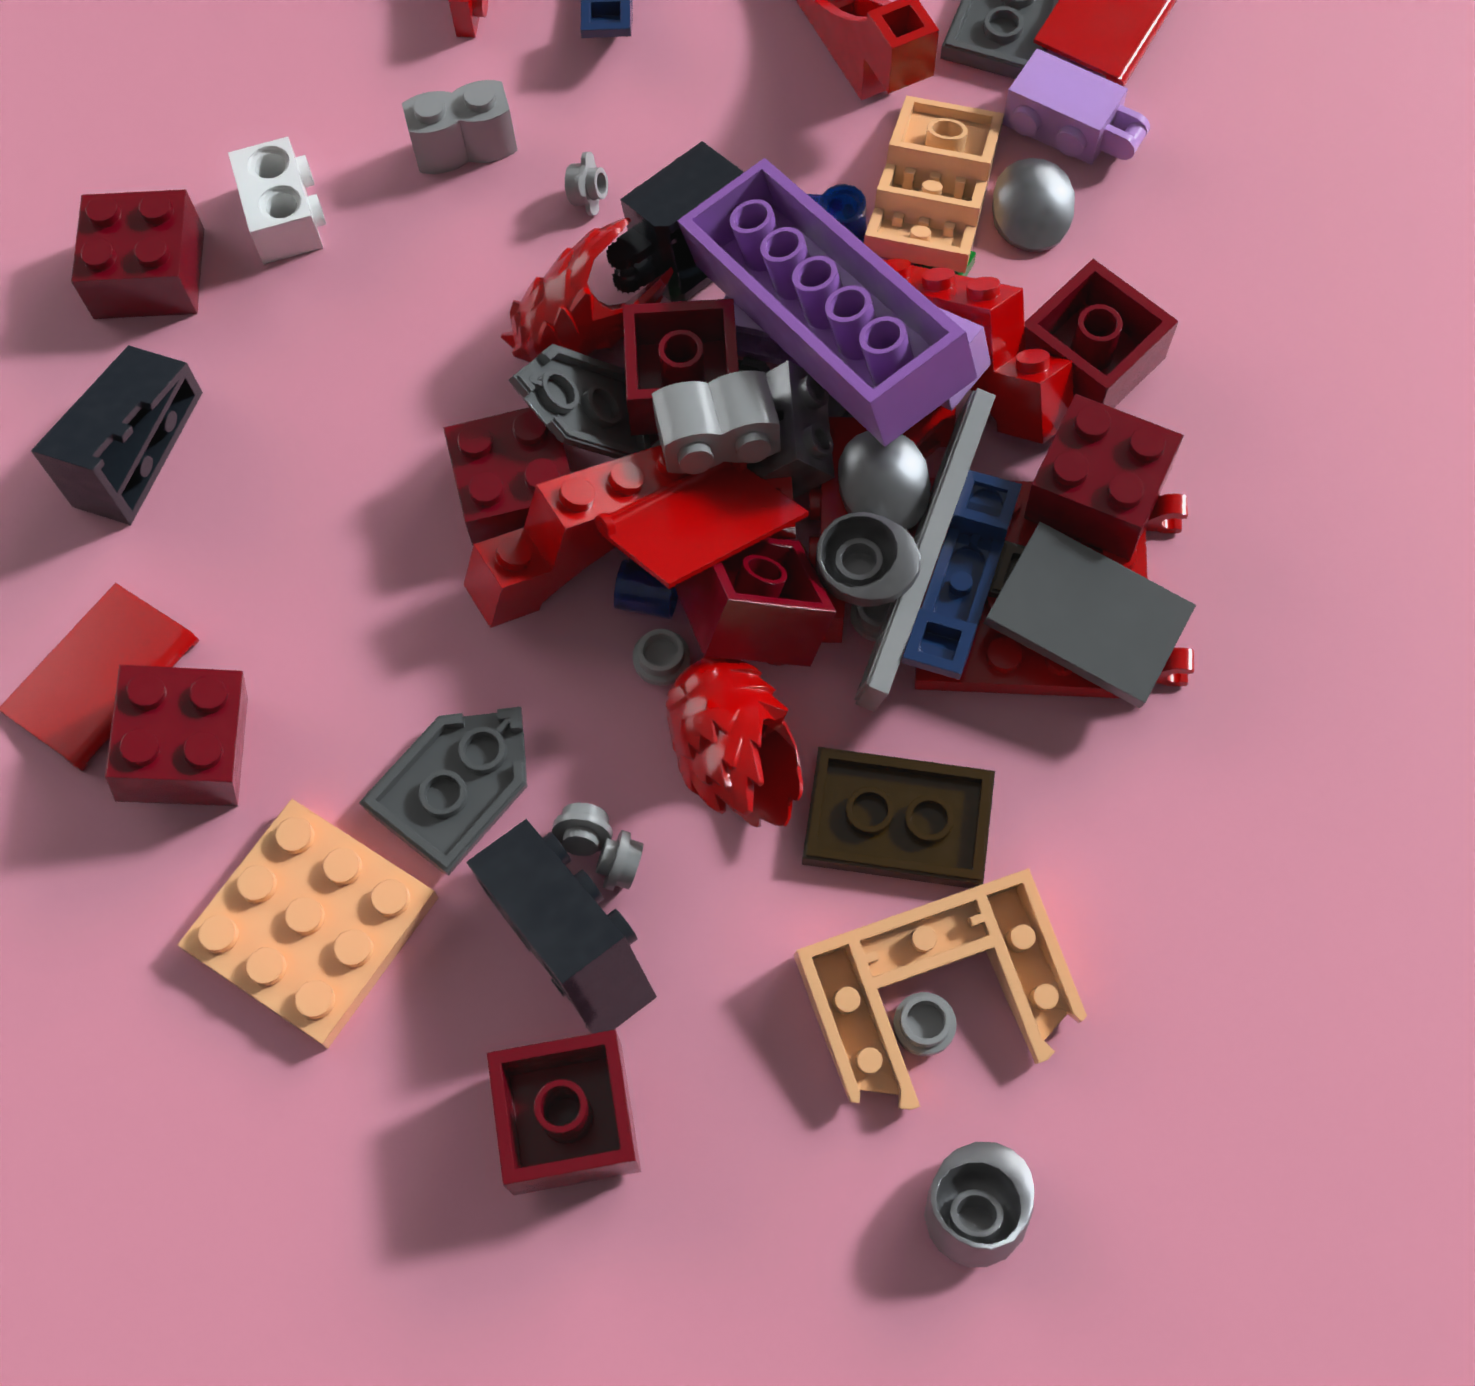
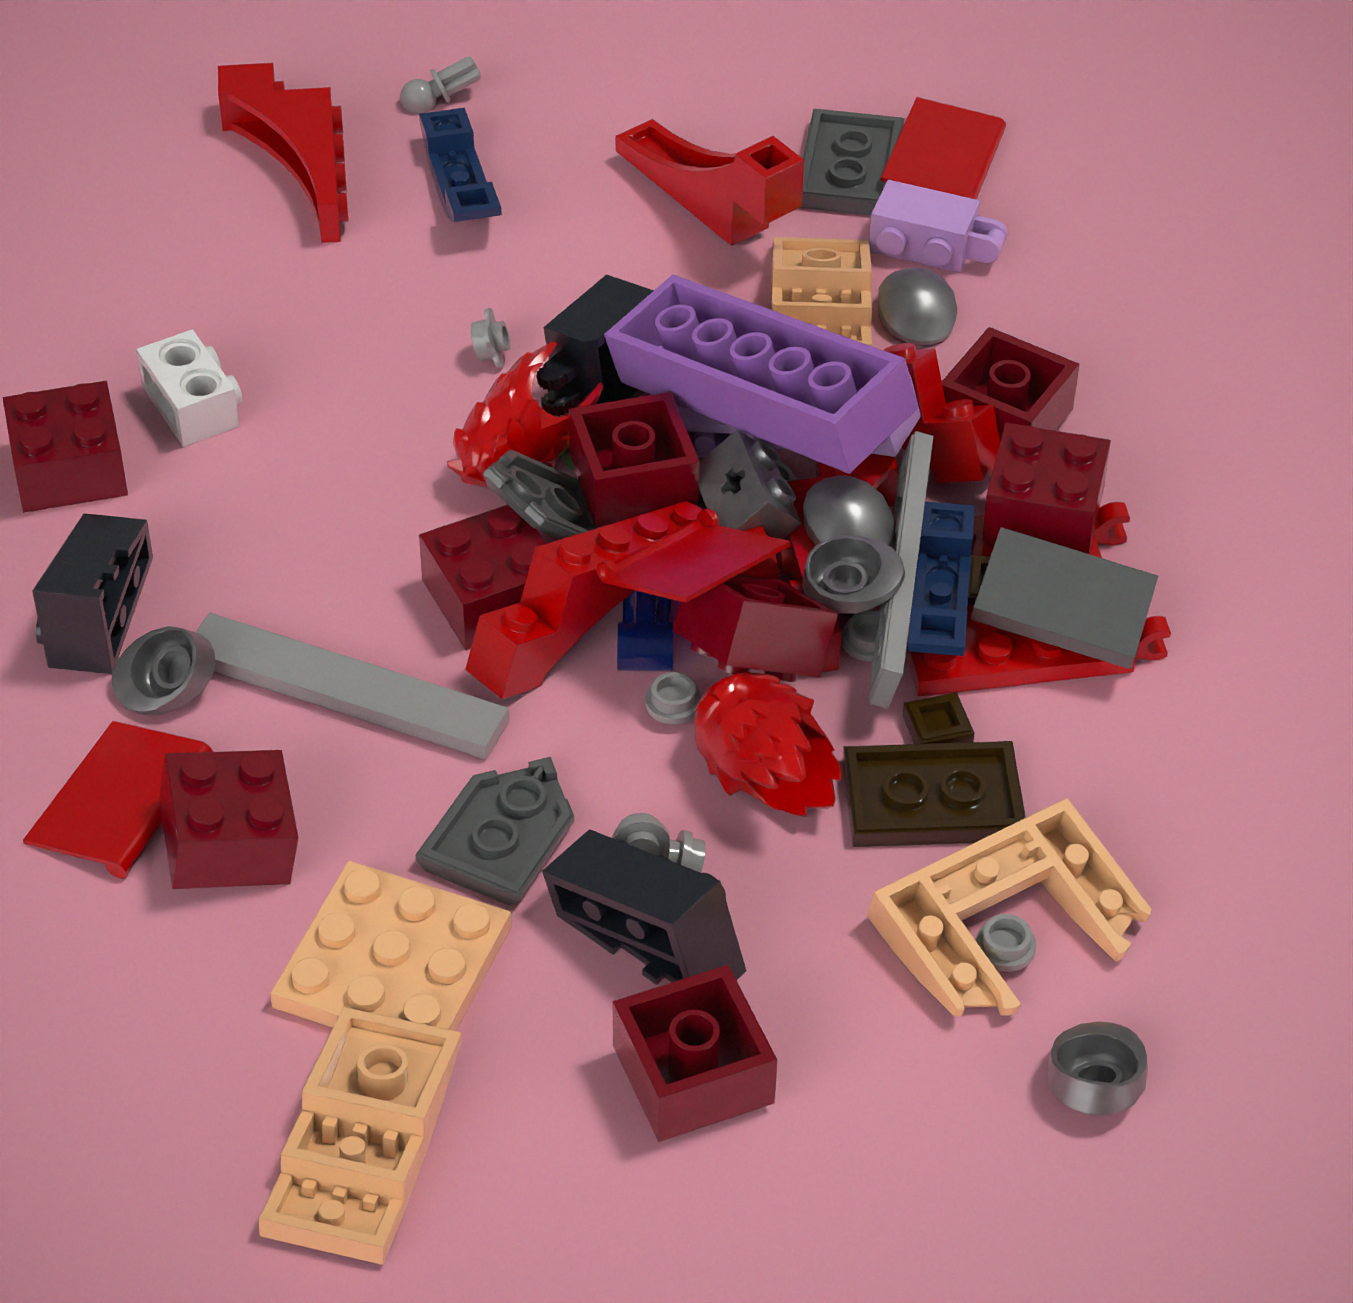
camera: 15 degrees left, 20 degrees down
(169, 538) = (163, 670): none -> flat silver hat
(223, 1131) = (360, 1135): none -> light nougat slope
(347, 583) = (355, 687): none -> light grey tile
(460, 126) = (355, 307): light grey brick -> none
(716, 422) = (685, 483): light grey brick -> none
(925, 730) = (938, 720): none -> dark brown tile

